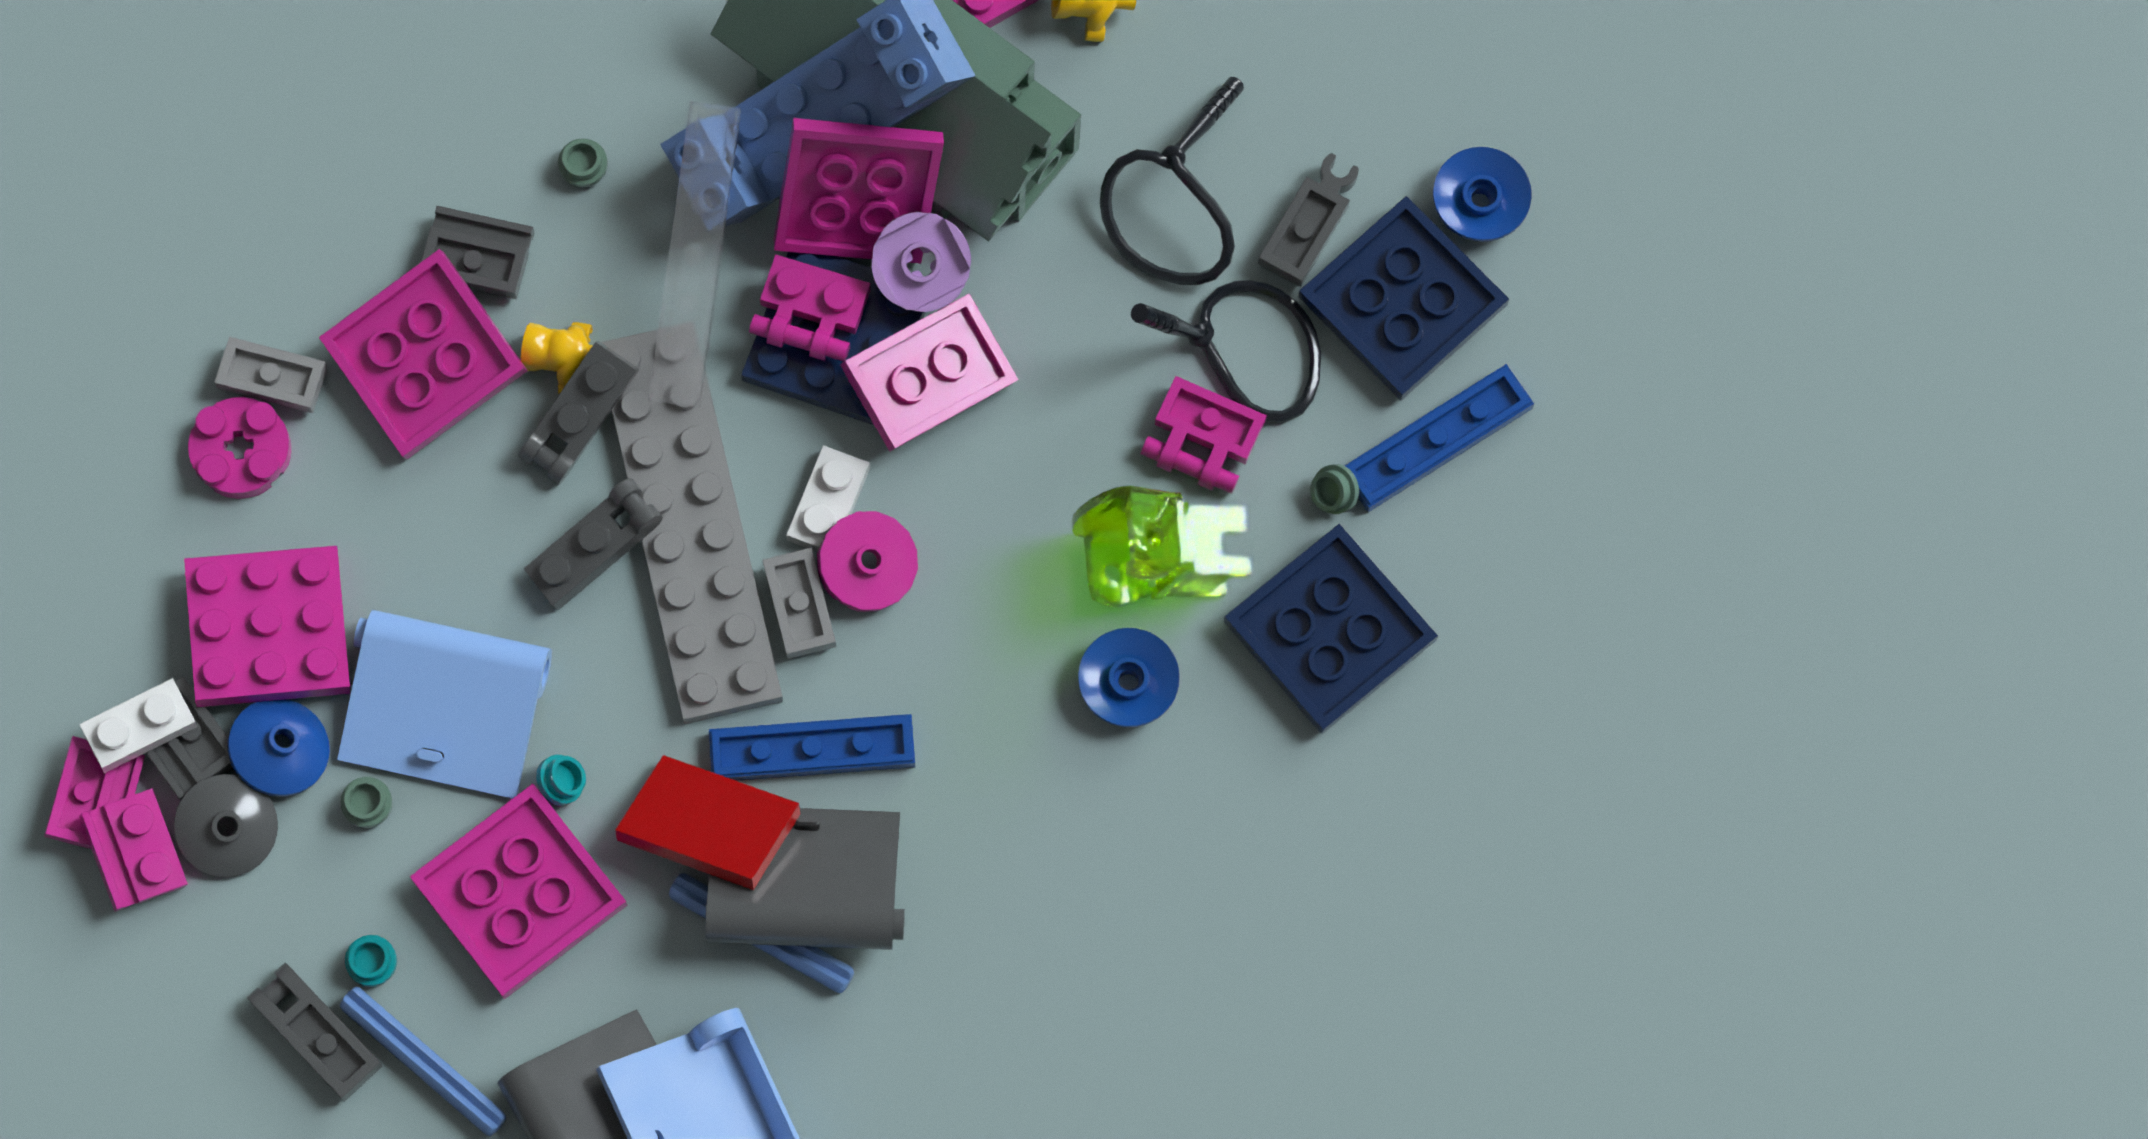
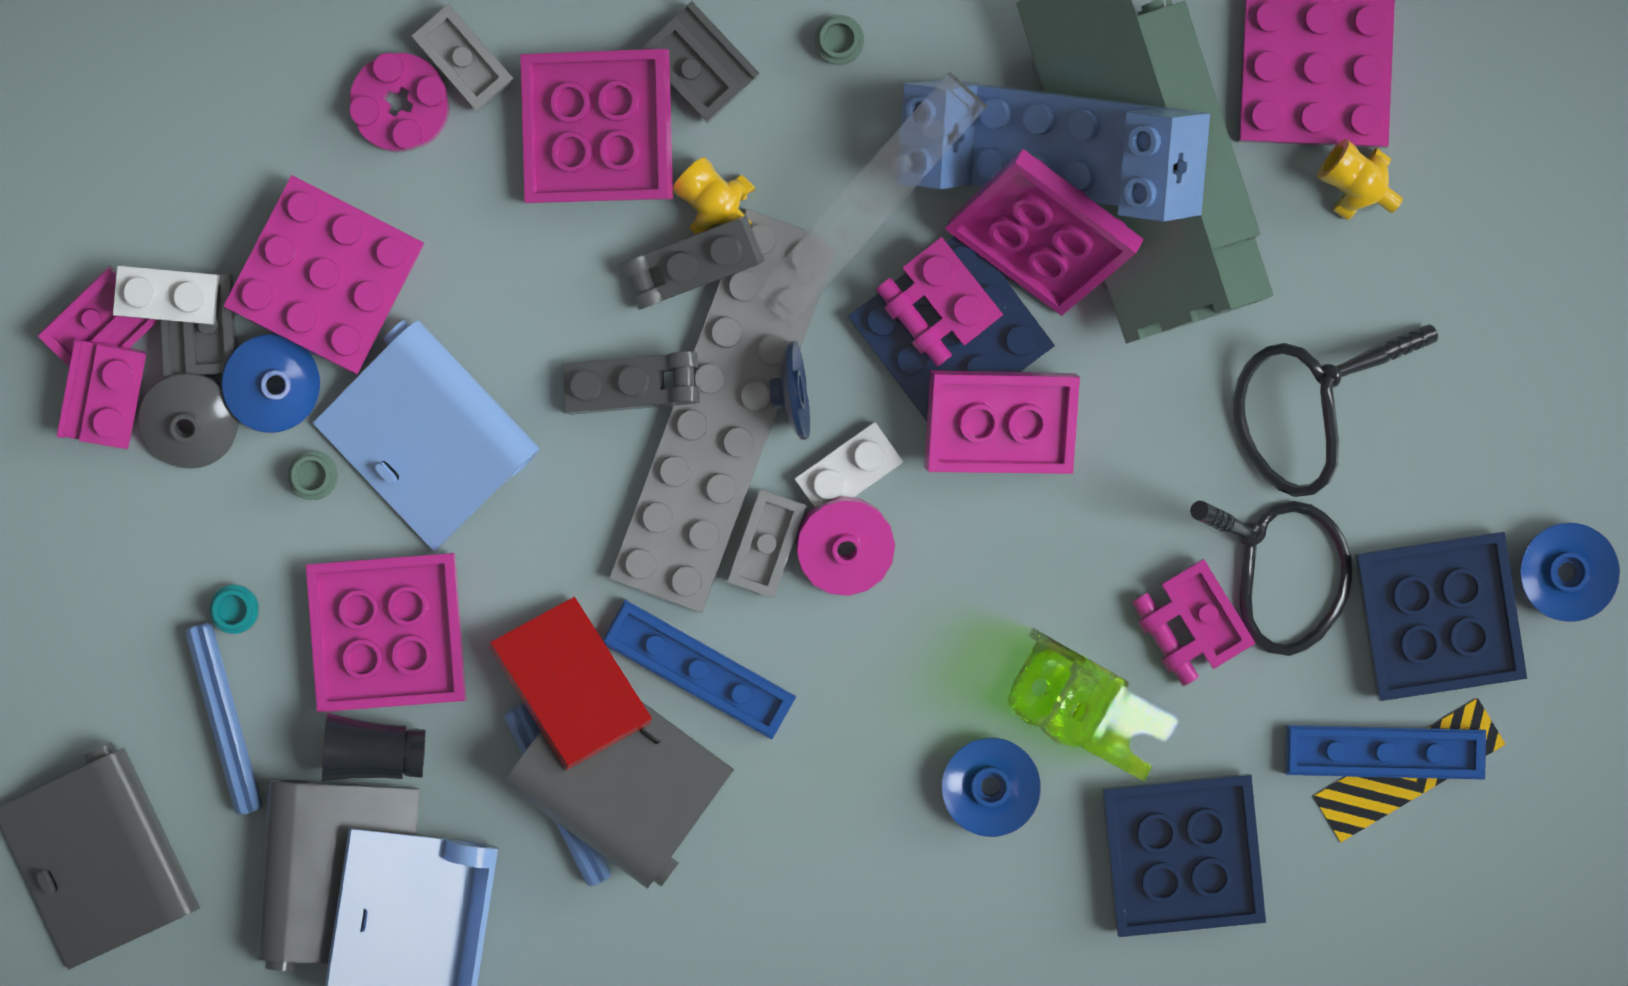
camera: 45 degrees right, 15 degrees up
(316, 1033) = (153, 639): dark grey plate -> none
(560, 779) = (478, 562): teal plate -> none
(571, 997) = (371, 750): none -> black plant
(732, 459) = (791, 390): none -> dark blue dish
(913, 289) = (1076, 306): lavender plate -> none
(1308, 224) = (1406, 499): dark grey plate -> none
(1334, 489) = (1268, 741): sand green plate -> none
(1448, 491) = (1361, 801): none -> sticker

